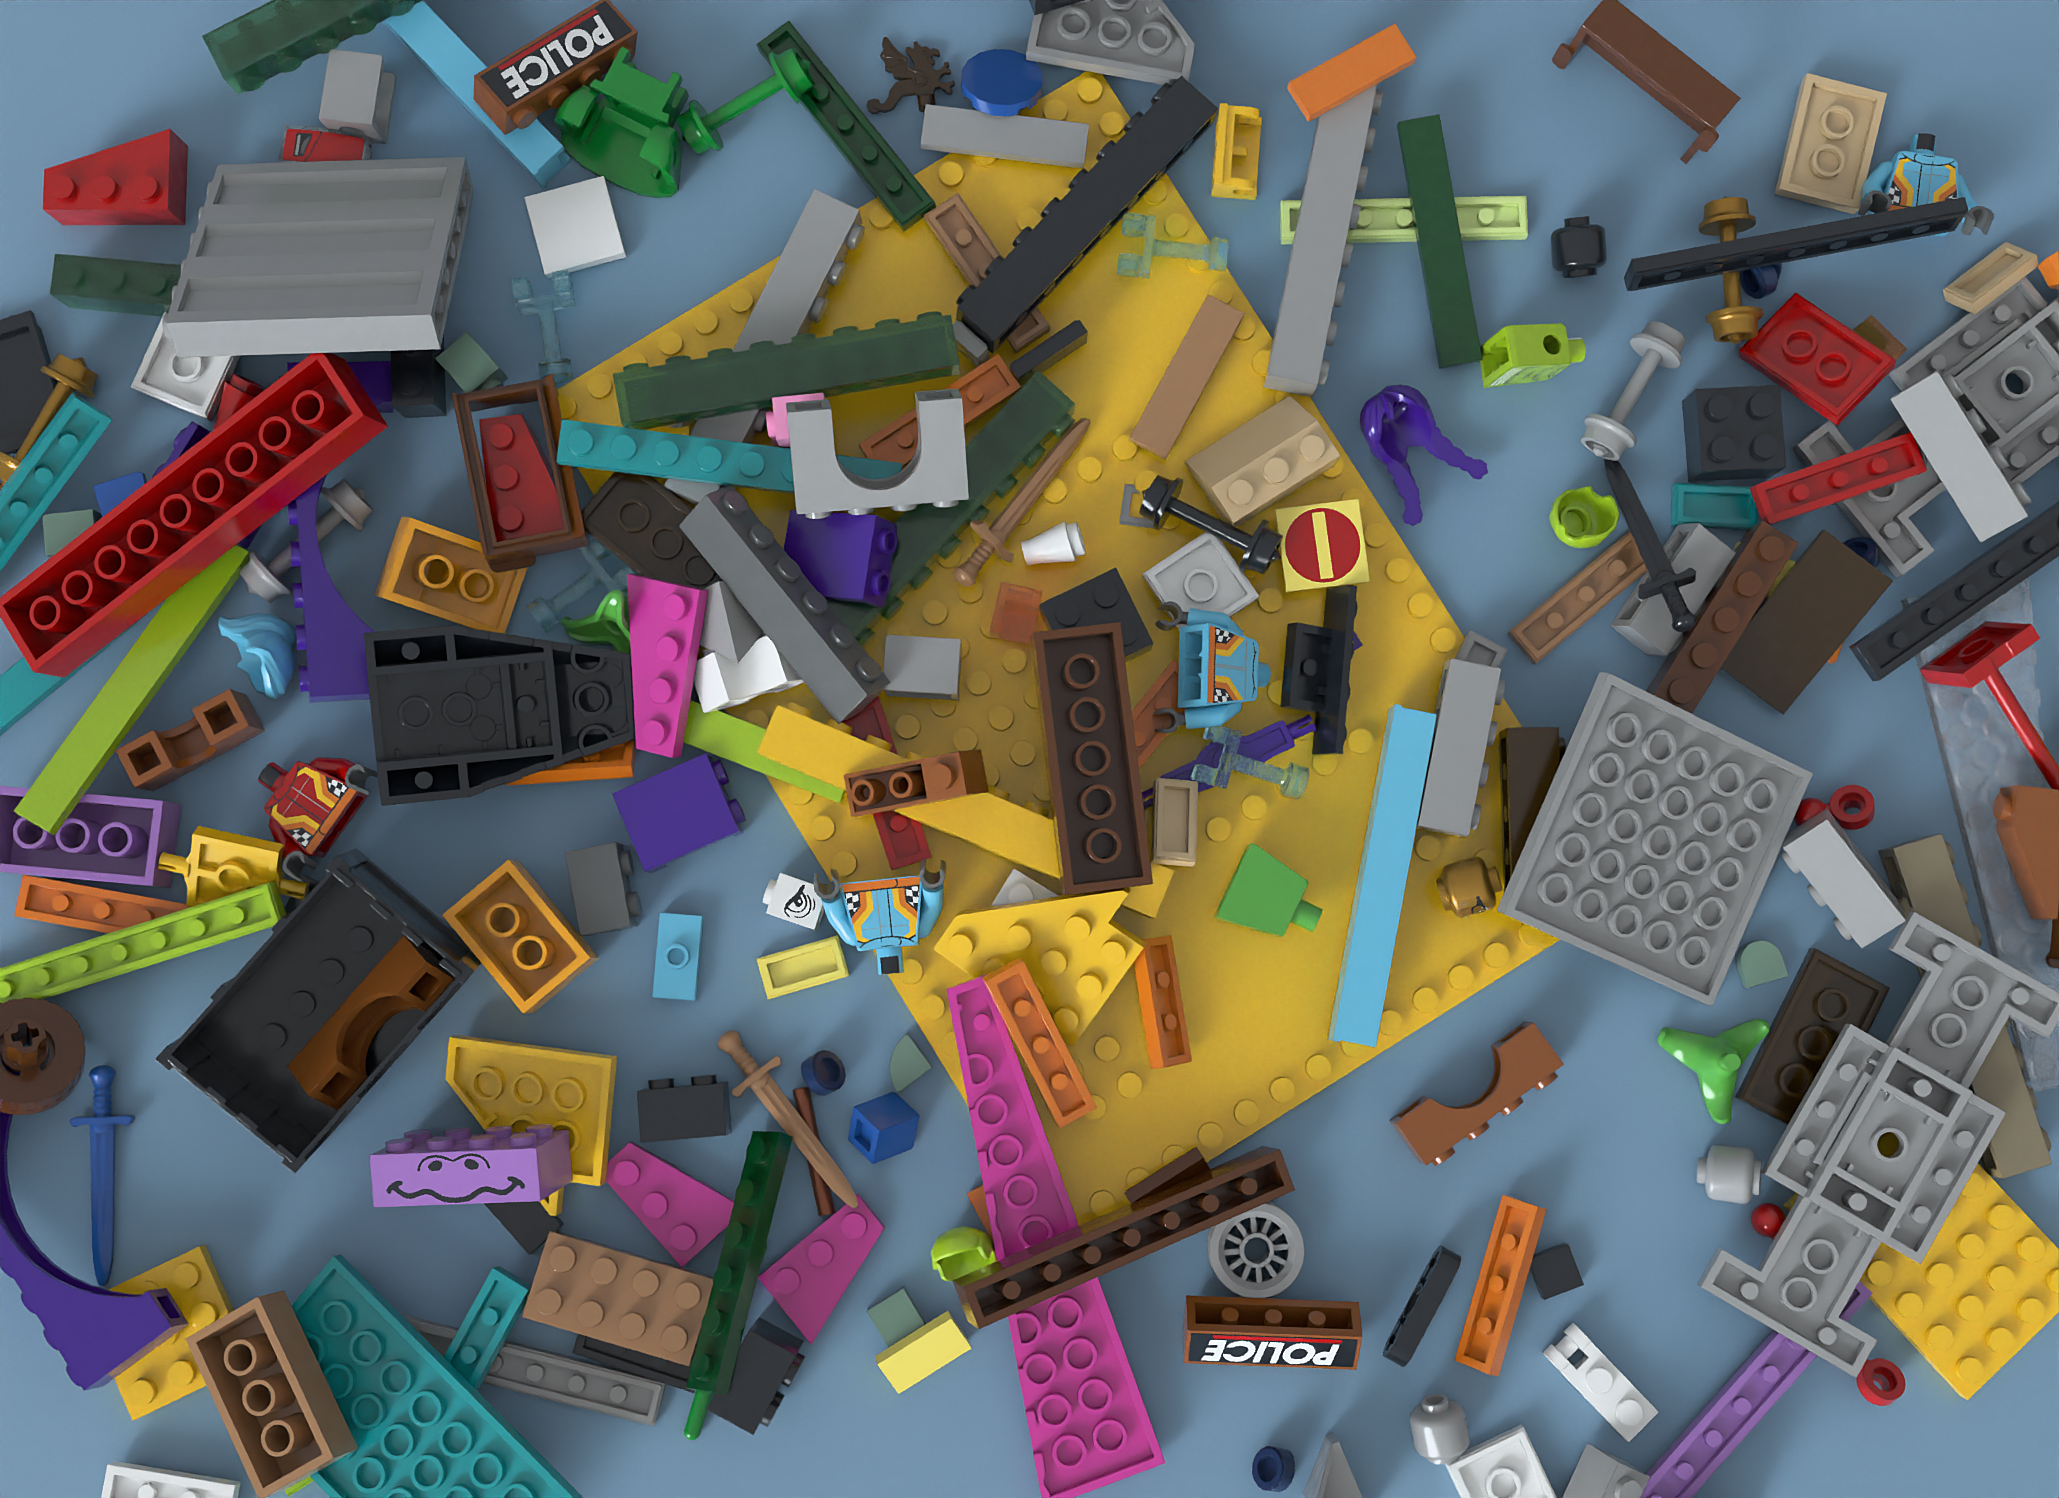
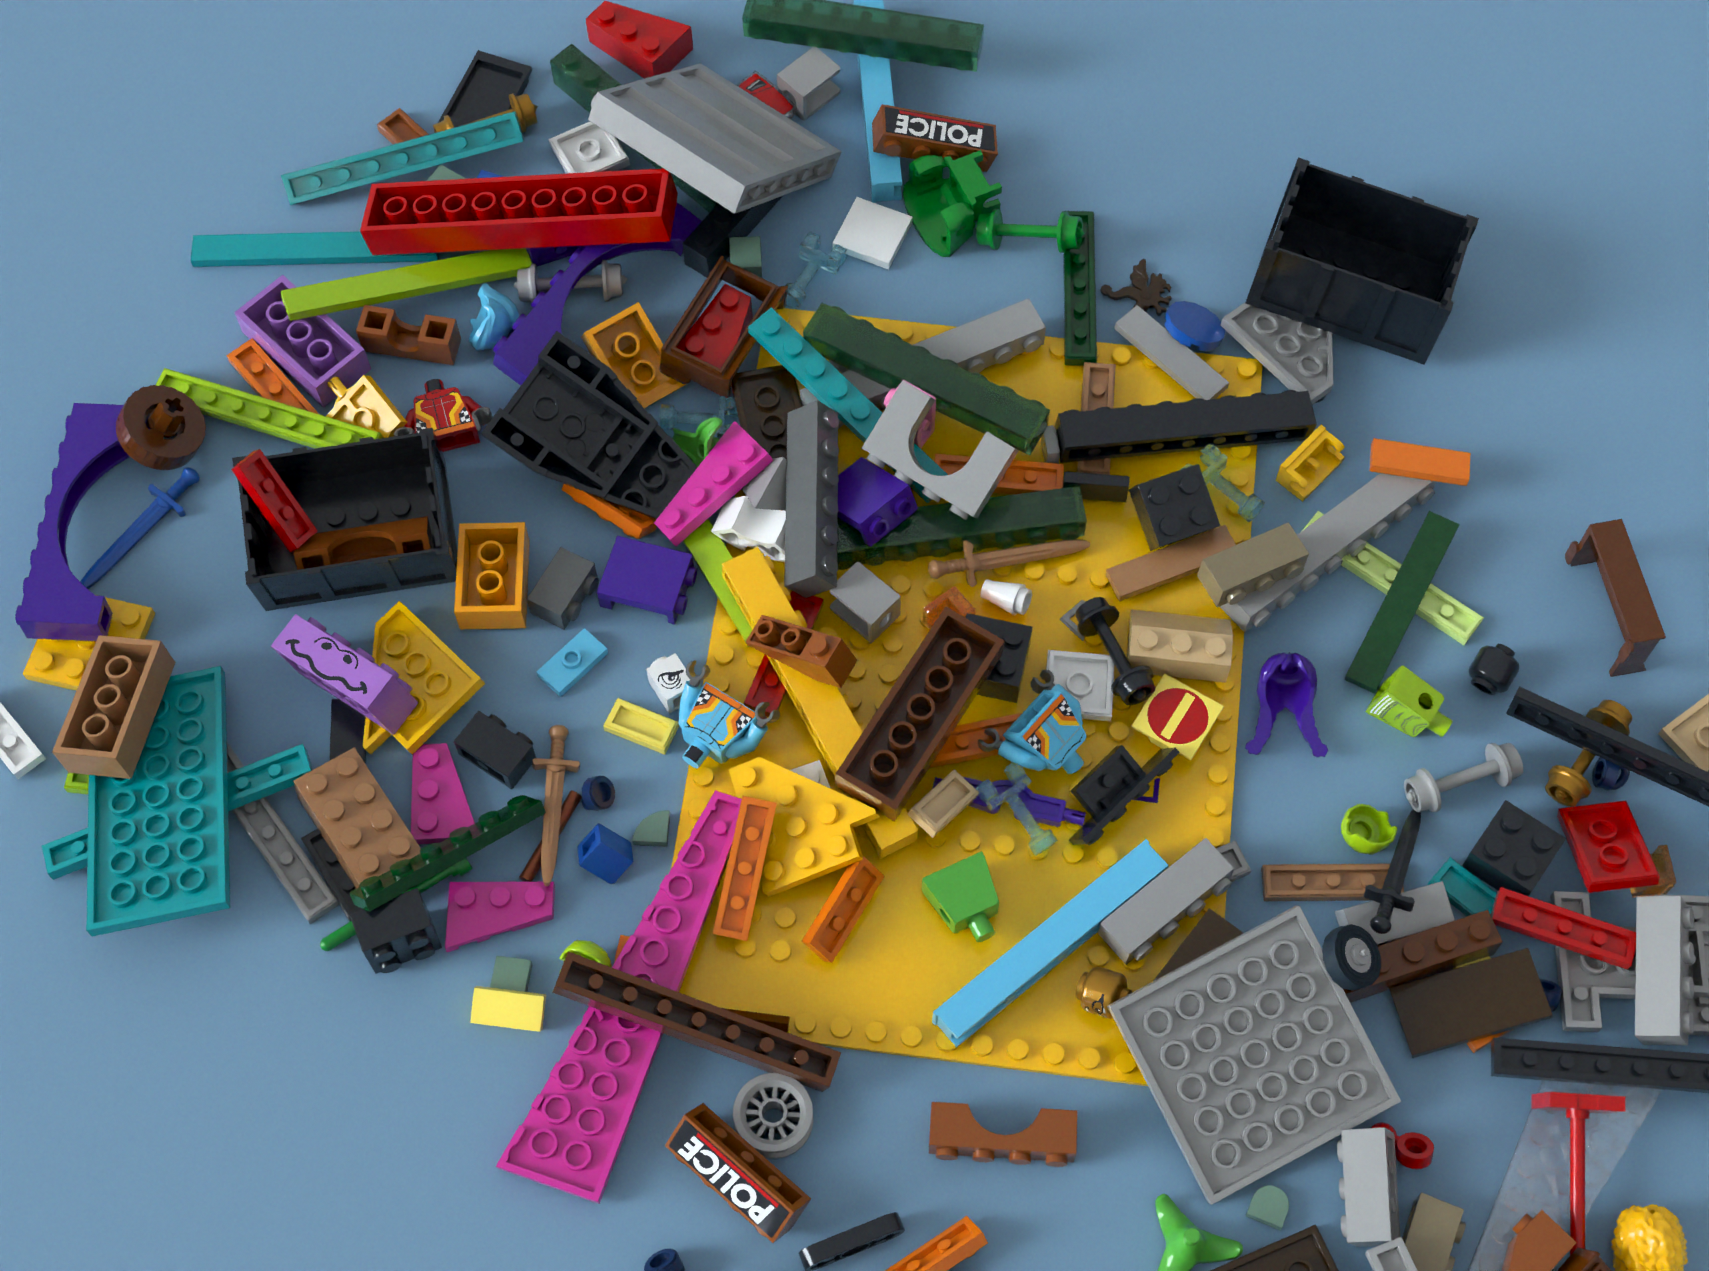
camera: 40 degrees right, 20 degrees down
(240, 1064) = (274, 500): none -> red plate
(1150, 319) = (1174, 507): none -> black brick
(1284, 329) = (1253, 565): none -> dark tan brick
(1685, 679) = (1351, 957): none -> black wheel

